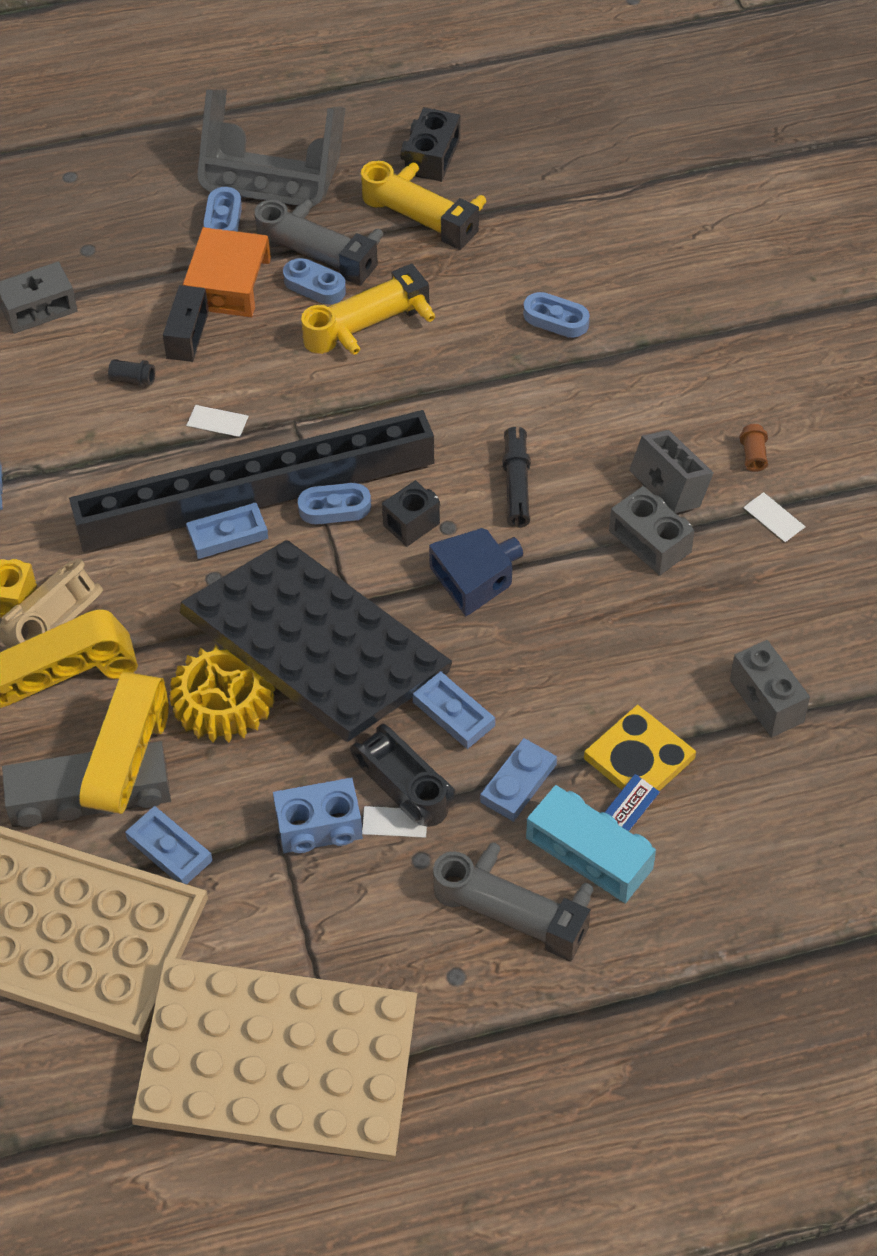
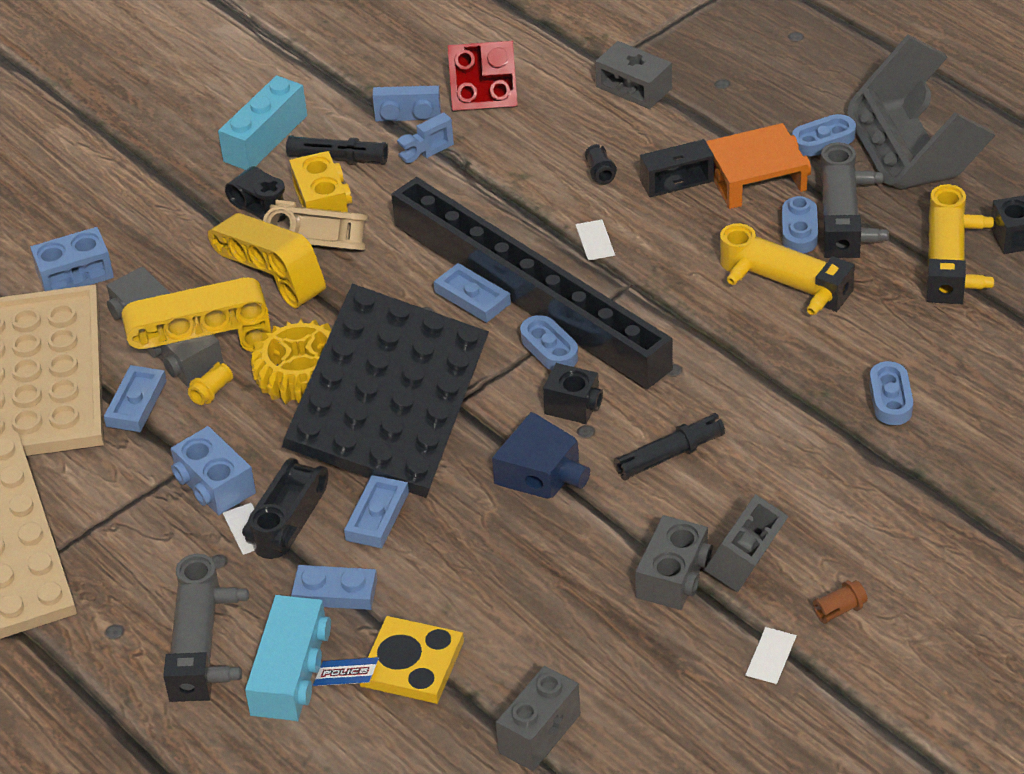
camera: 65 degrees right, 10 degrees down
(197, 784) = (203, 389): none -> yellow pin

